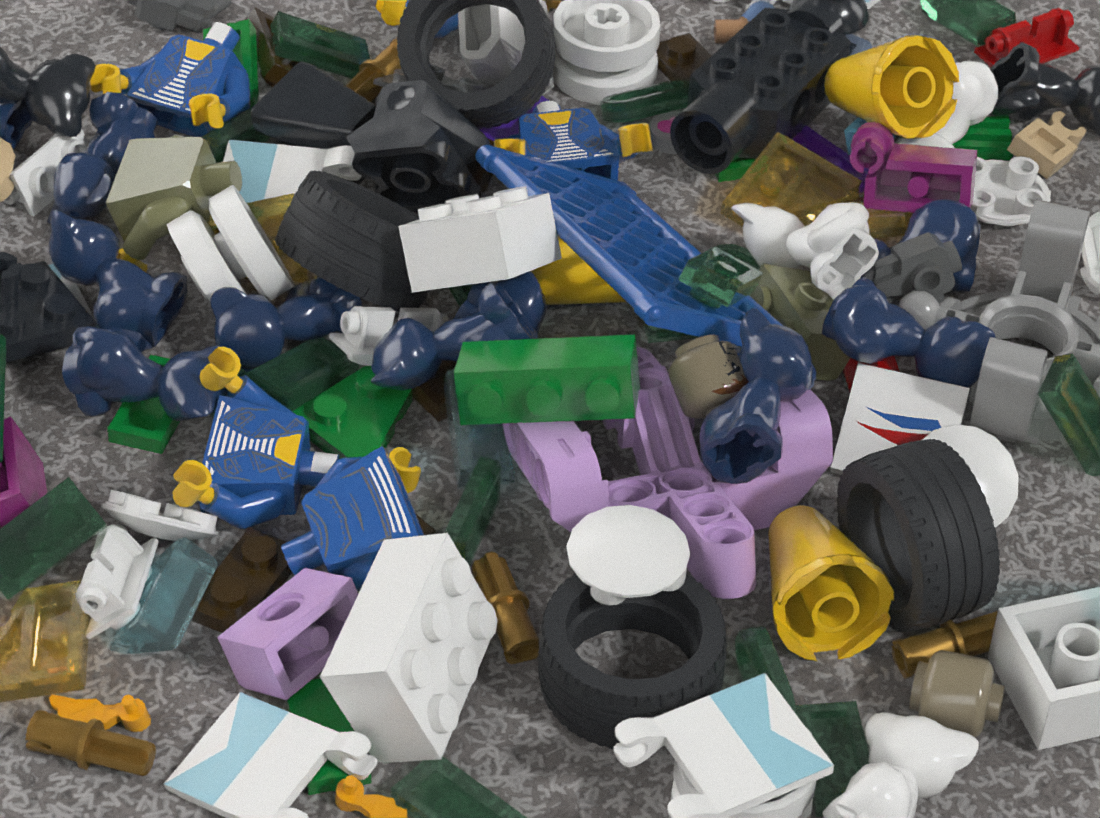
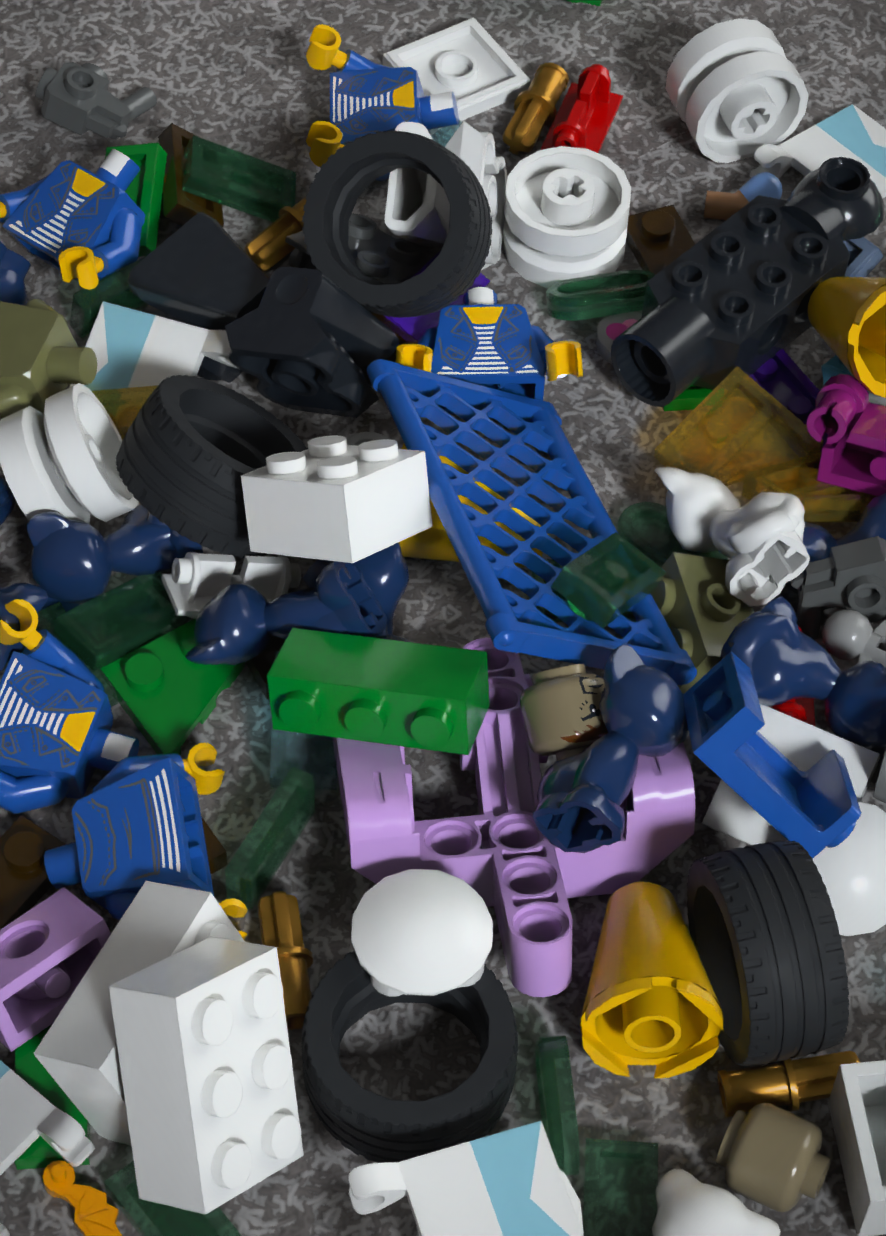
camera: 10 degrees right, 10 degrees up
(475, 671) = (206, 1073): none -> white brick
(845, 352) = (723, 727): none -> blue panel

